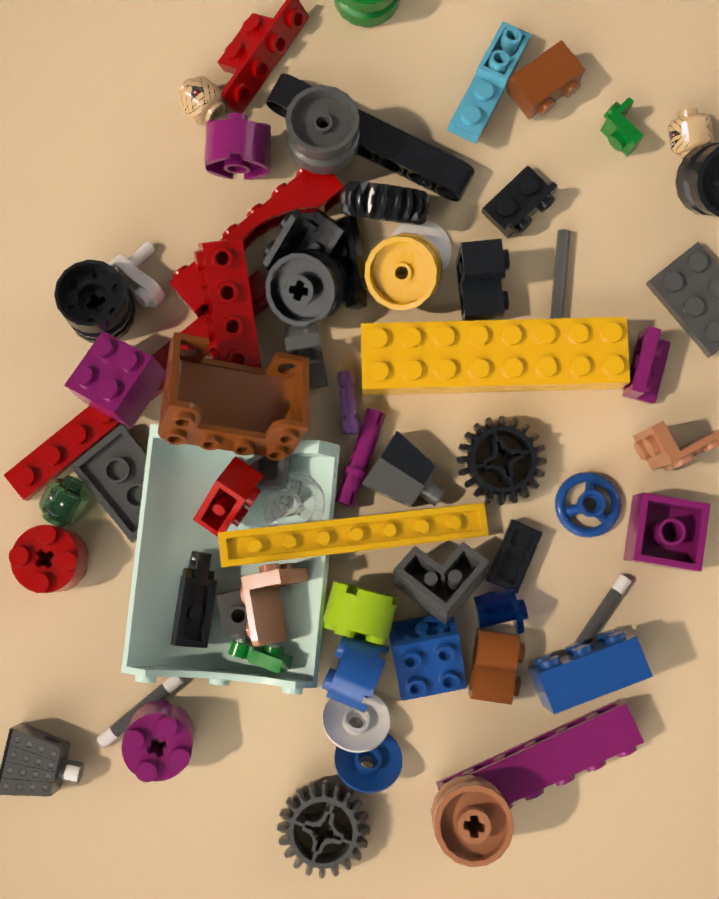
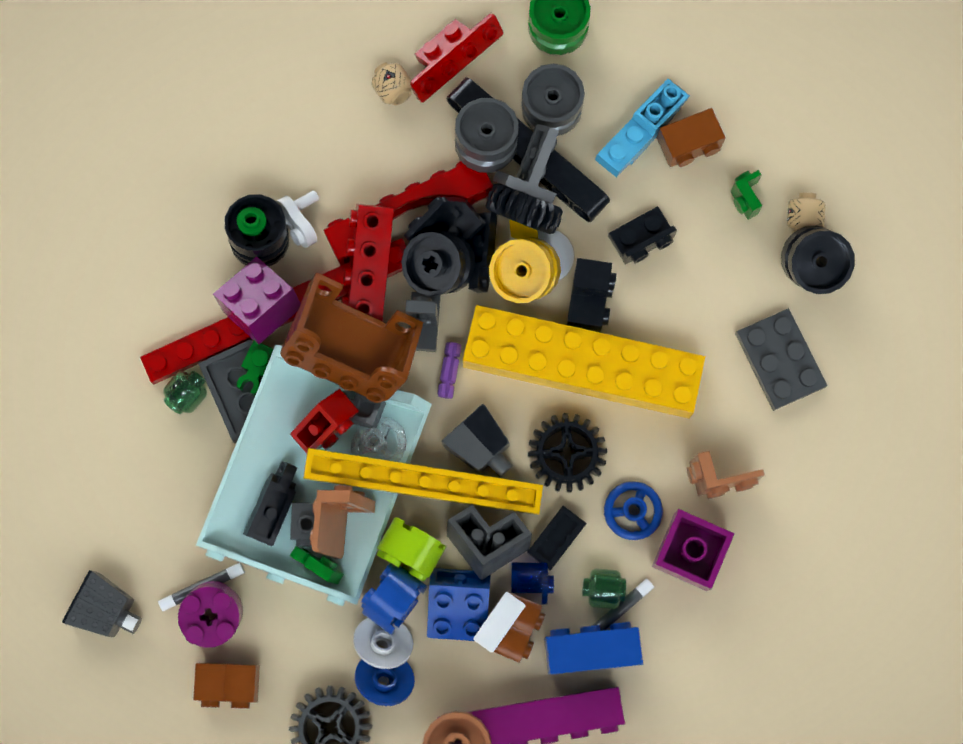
camera: 15 degrees right, 5 degrees down
(30, 559) = (144, 432): red brick -> none
(90, 300) = (254, 228): none -> green plate
(134, 450) = (255, 364): none -> green plate
(196, 810) = (227, 684): none -> dark orange brick
(237, 147) = (411, 131): magenta brick -> none
(362, 452) = (446, 420): magenta pin -> none
(383, 150) = (533, 165): none -> dark grey bracket
(384, 74) = (553, 98): none -> dark grey wheel
(386, 229) = (521, 231): none -> yellow sticker
(478, 667) = (499, 622): none -> white sticker
(560, 274) = (662, 305): dark grey bar -> none
(581, 598) = (604, 588): none -> clear green head
(647, 366) = (715, 405): magenta bracket -> none

